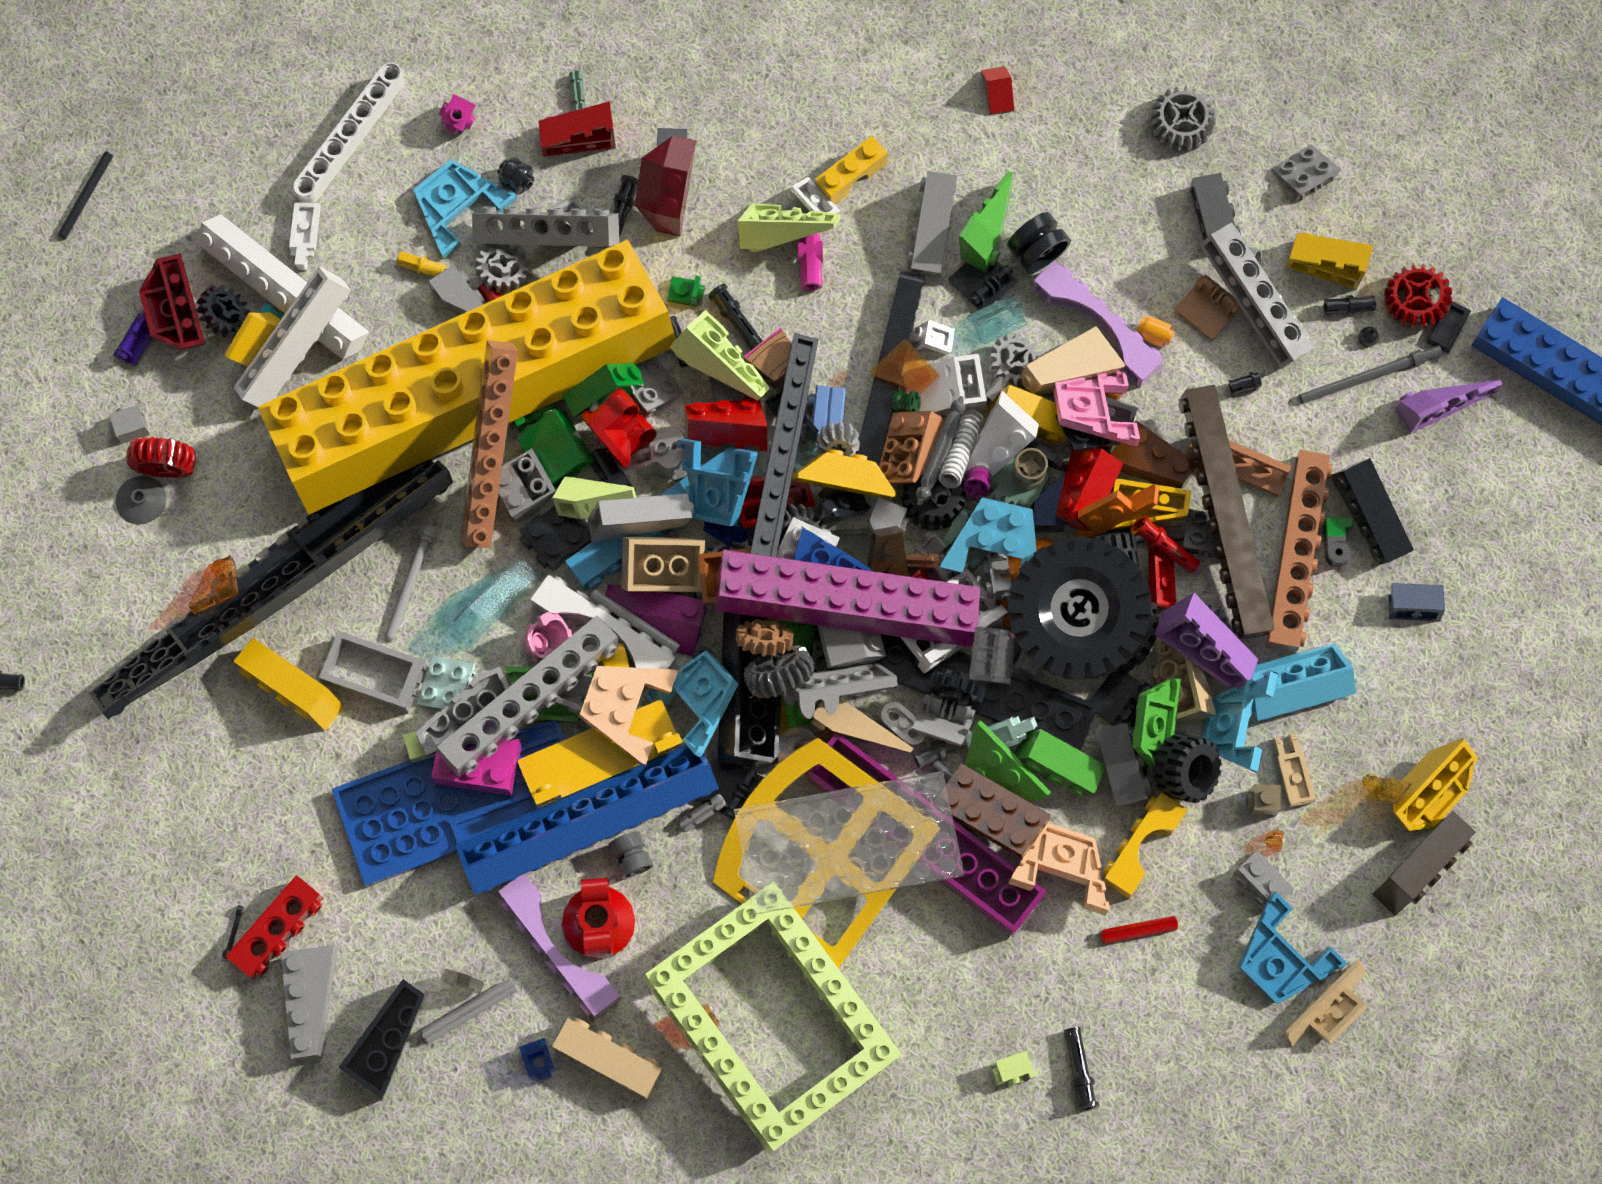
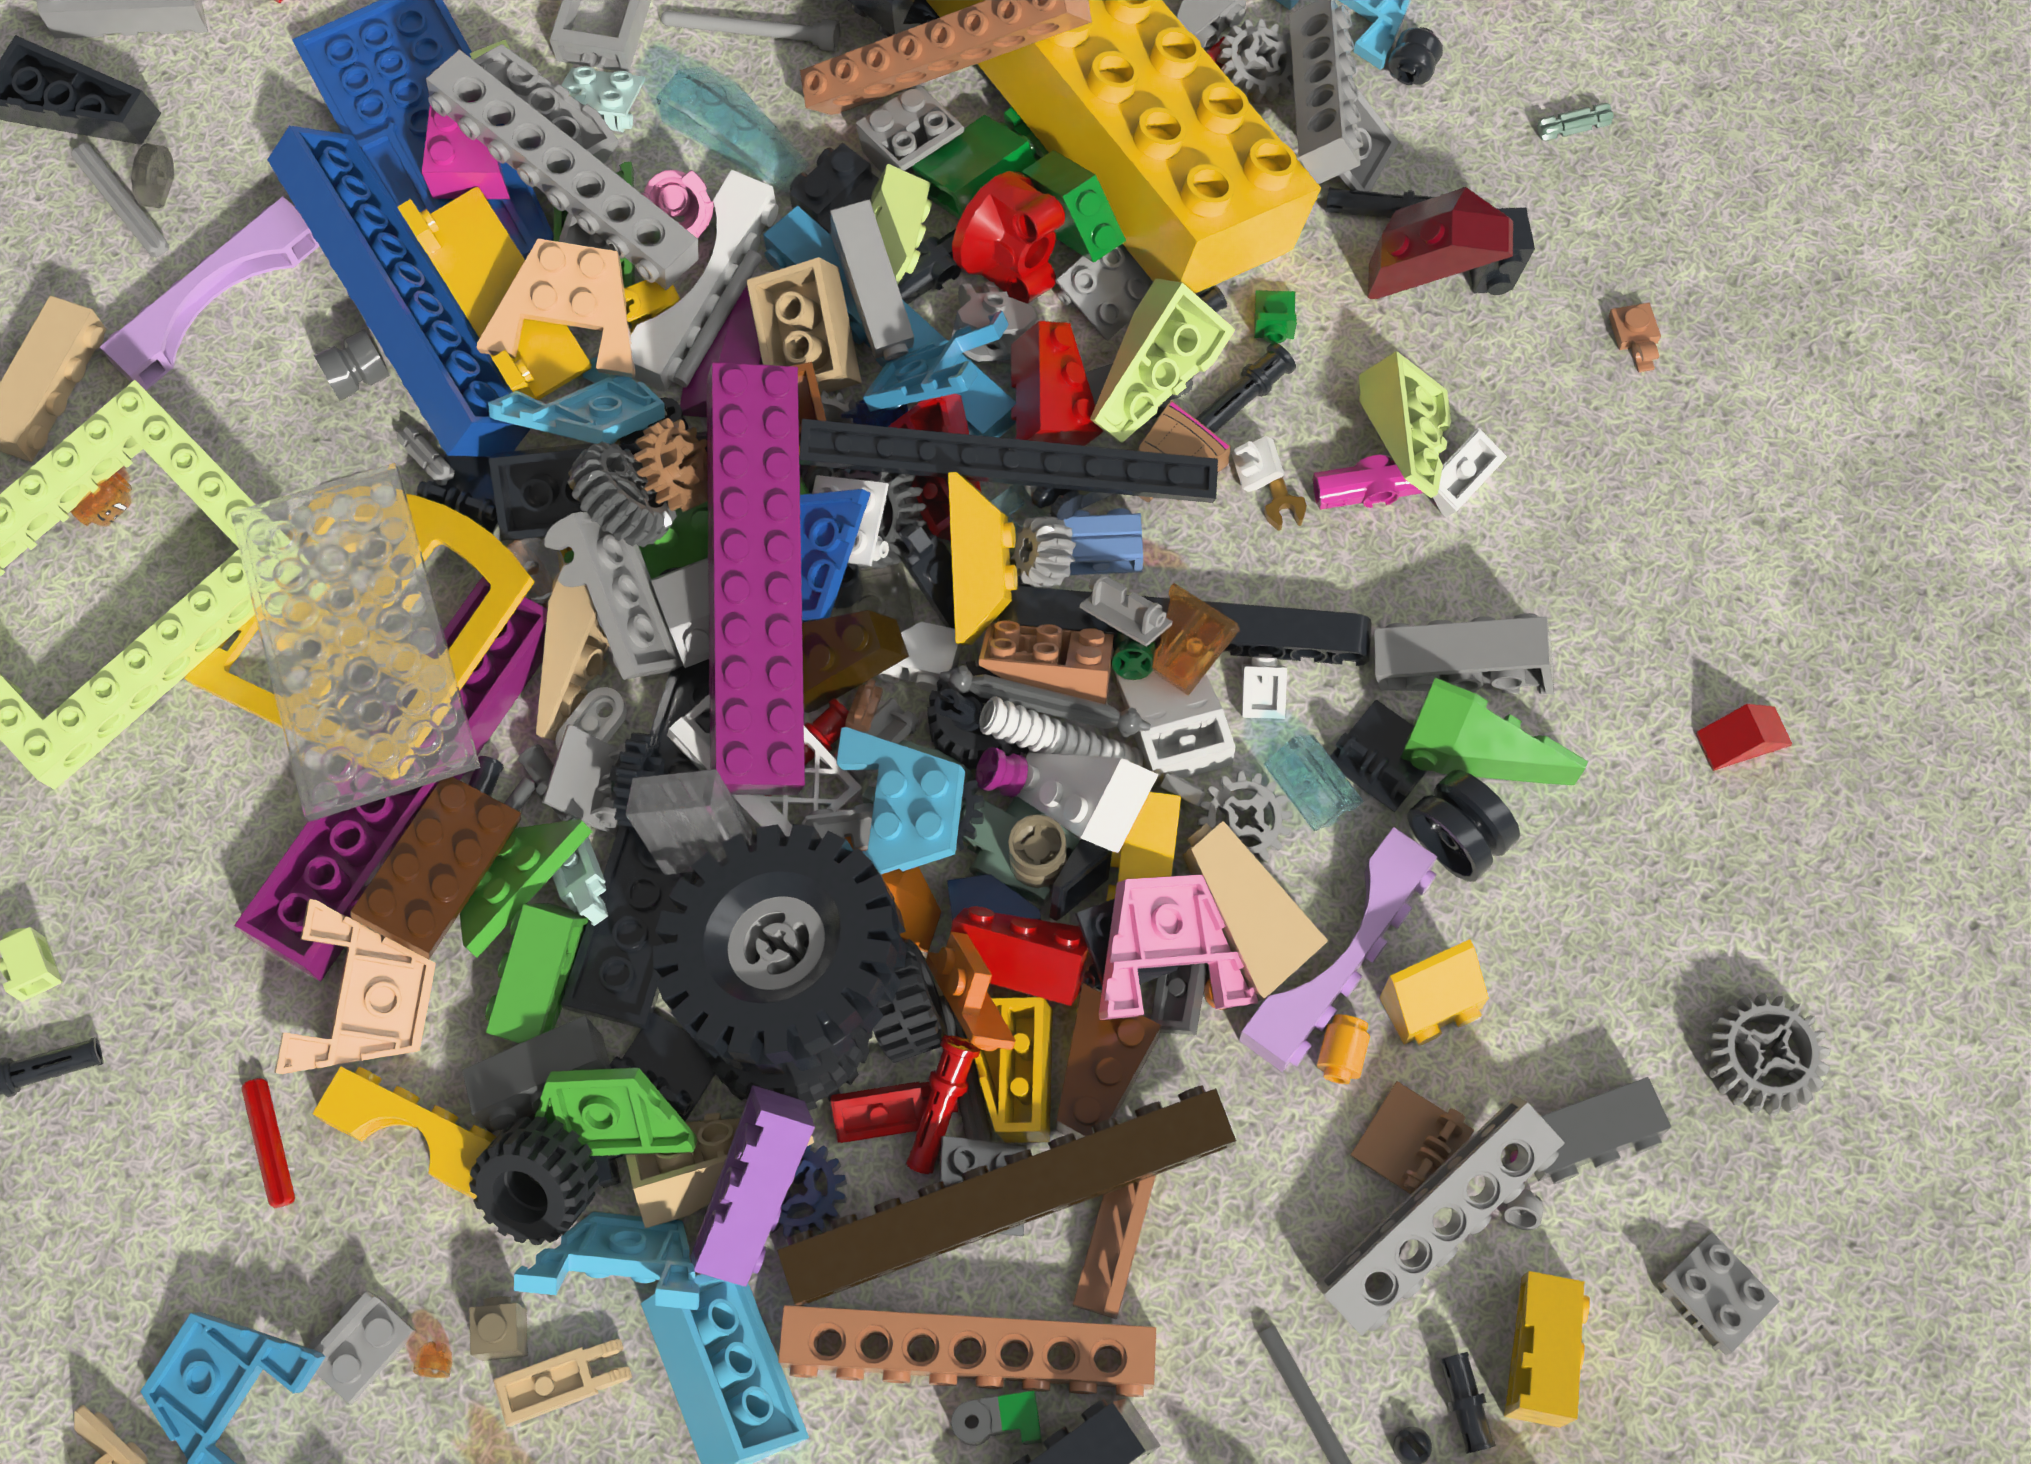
camera: 85 degrees right, 5 degrees down
(535, 1050) = (36, 285): clear blue brick -> none
(578, 131) = (1507, 125): red wedge -> none
(605, 940) = (250, 360): red piece -> none
(729, 90) = (1638, 330): none -> nougat plate
(788, 316) = (1257, 463): none -> white tile
(809, 308) = (1283, 500): none -> pearl gold bar
(861, 161) = (1556, 534): yellow arch -> none
(886, 400) = (1128, 614): none -> light grey hinge
(1131, 277) = (1435, 994): none -> yellow slope
(1245, 383) = (1275, 1221): black pin -> none

